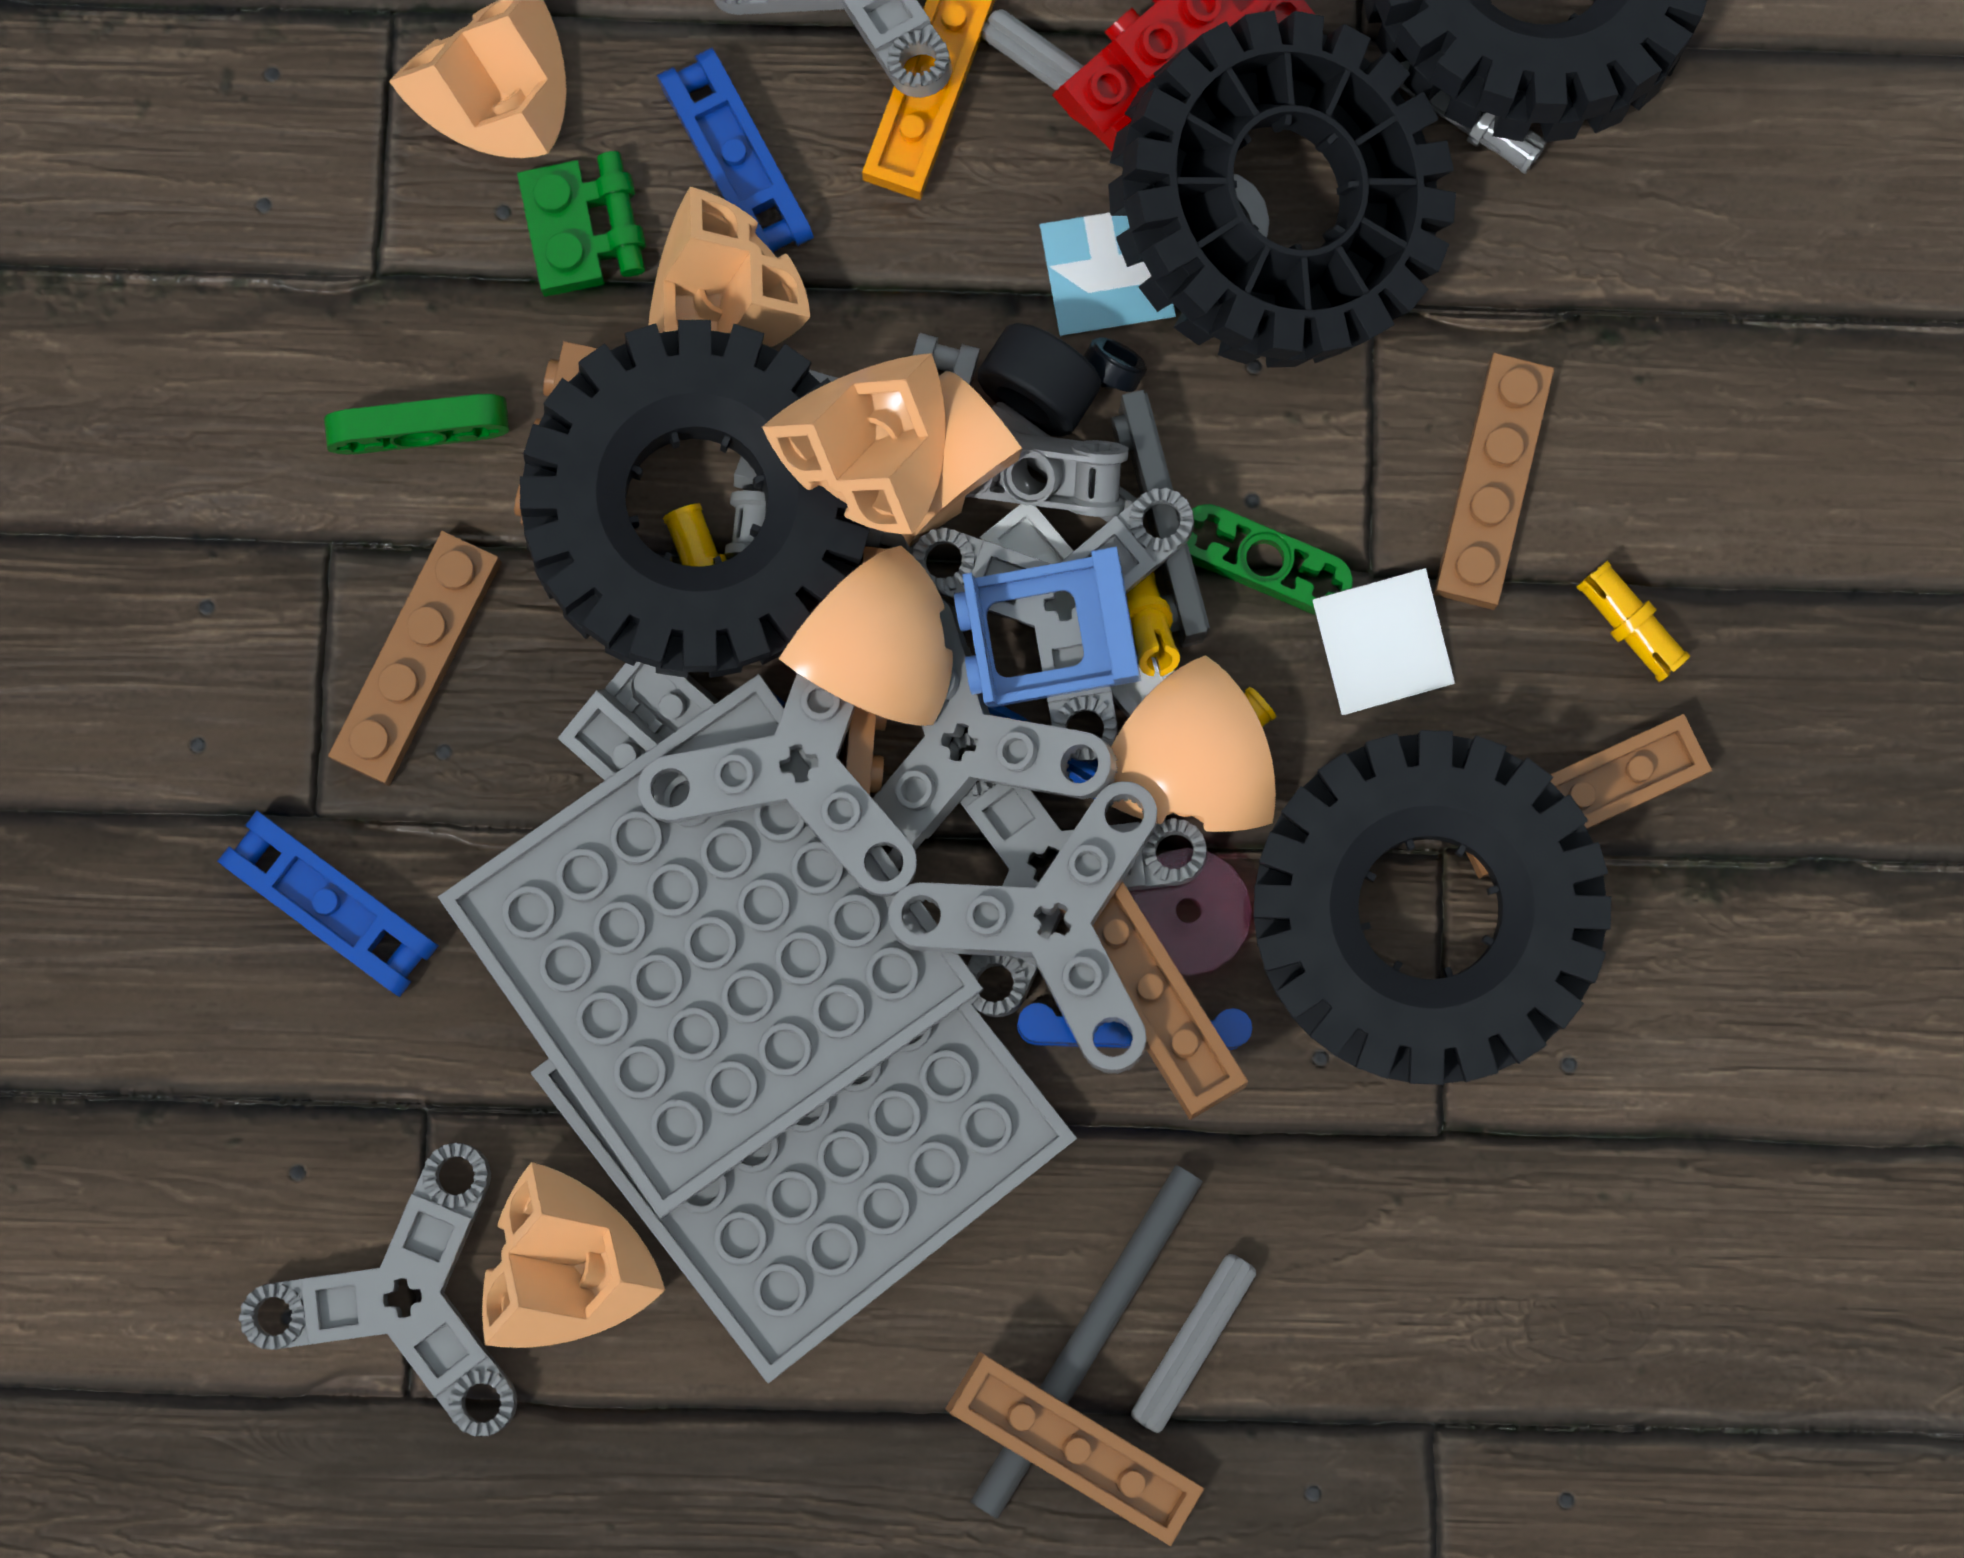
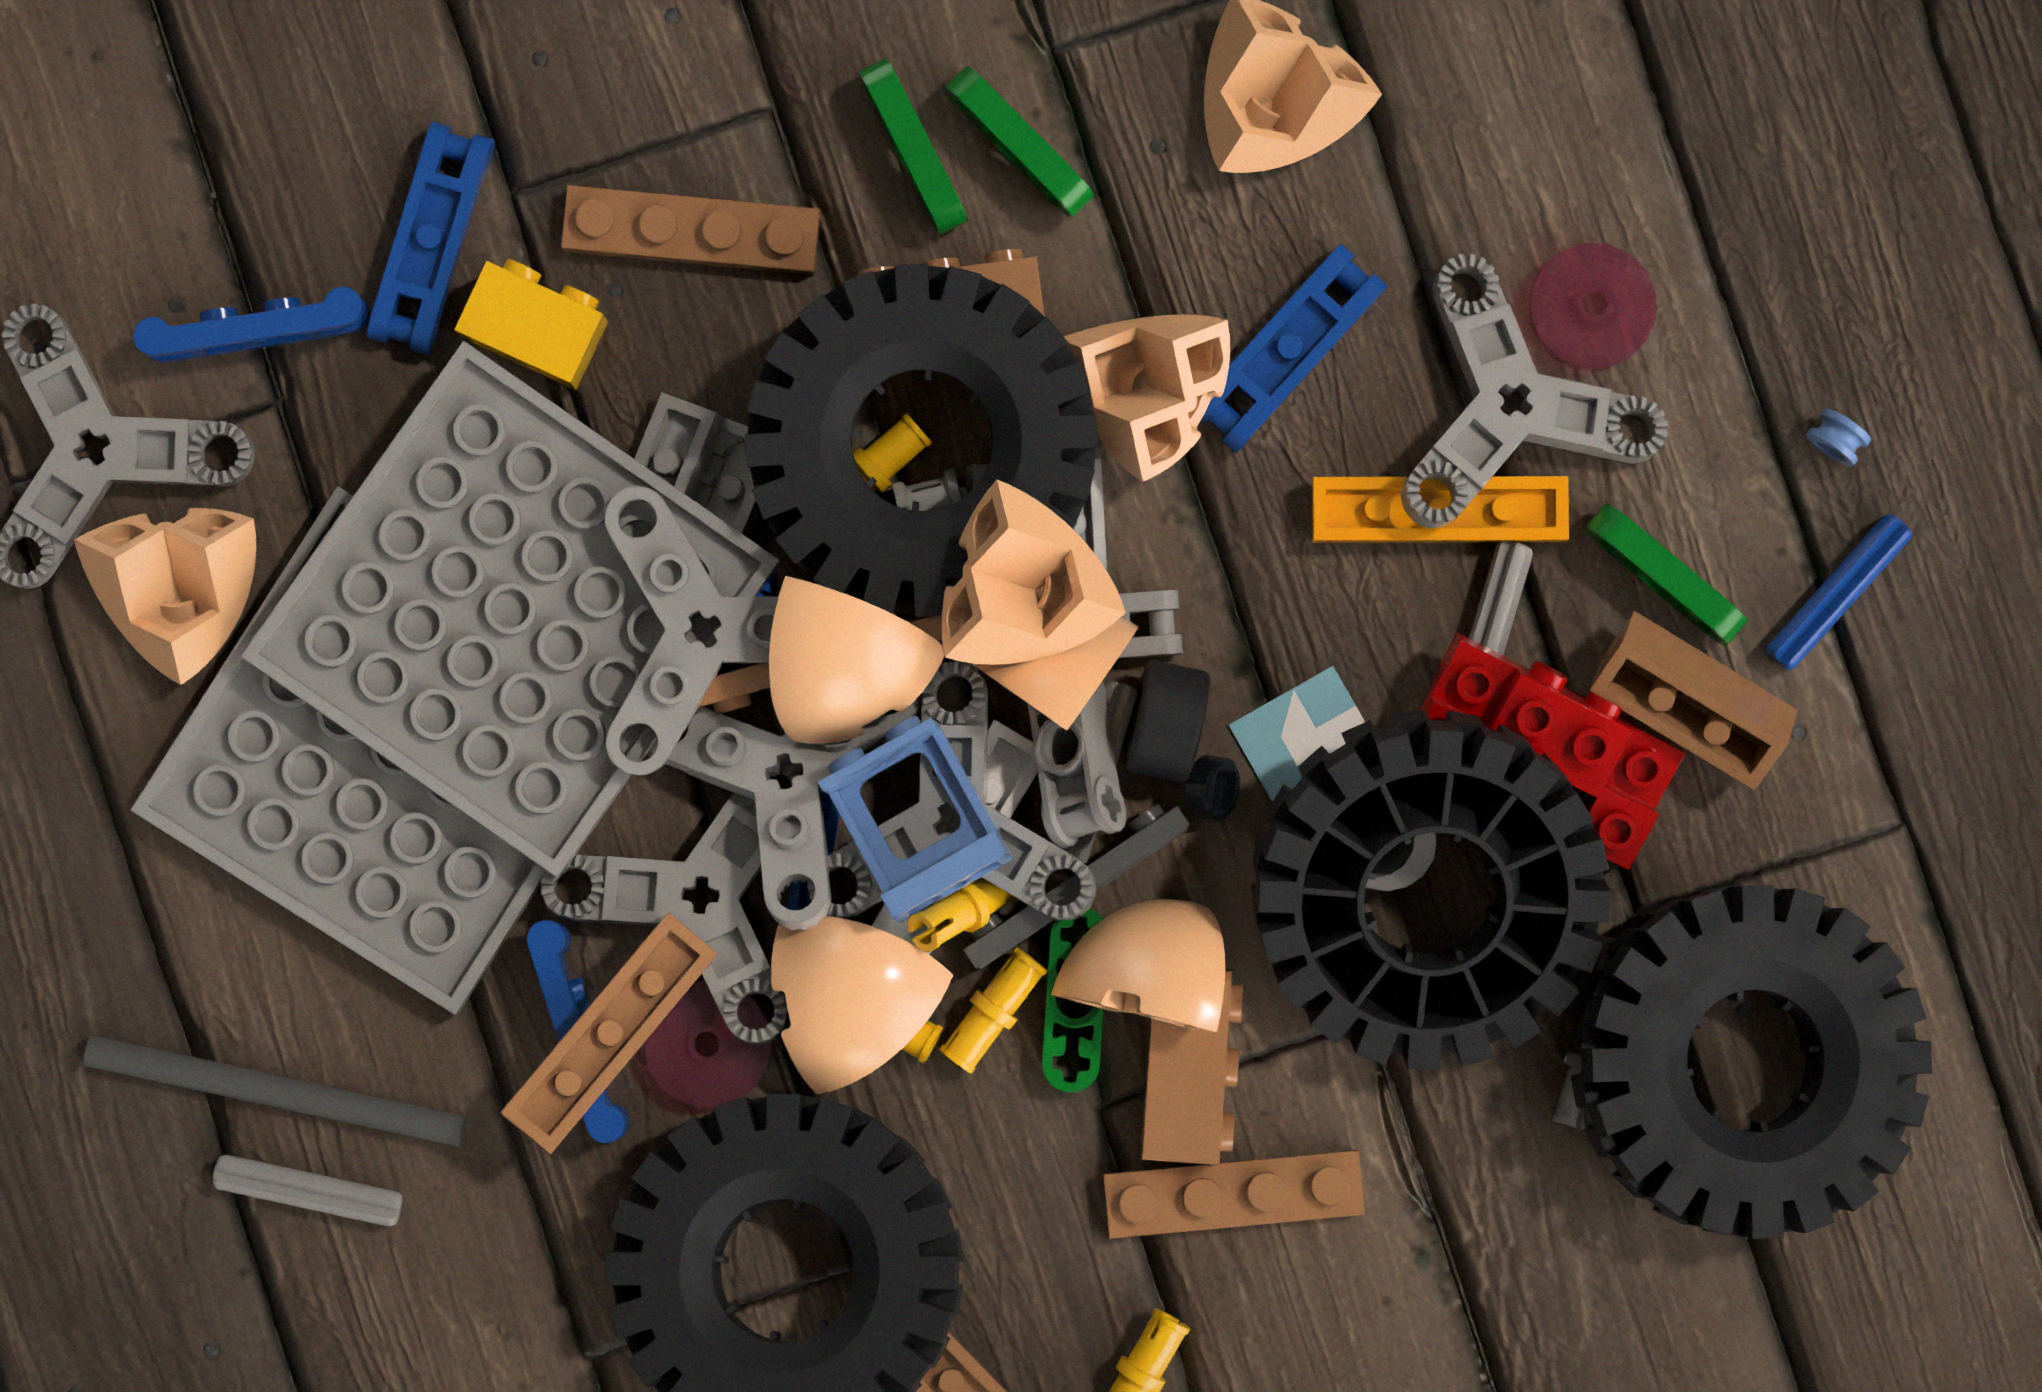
camera: 70 degrees right, 5 degrees up
(342, 1128) = (279, 324): none -> blue plate
(445, 832) = (532, 323): none -> yellow brick
(450, 327) = (1018, 141): none -> green beam
(562, 228) = (1161, 208): green plate -> none
(1005, 923) = (624, 874): light grey piece -> none
(1074, 1448) = (168, 1113): medium nougat plate -> none
(1249, 635) = (993, 1010): none -> yellow pin
(1259, 466) = (1151, 962): none -> light nougat brick
(1363, 475) = (1187, 1088): none -> medium nougat brick
(1383, 641) = (1035, 1141): white sticker -> none

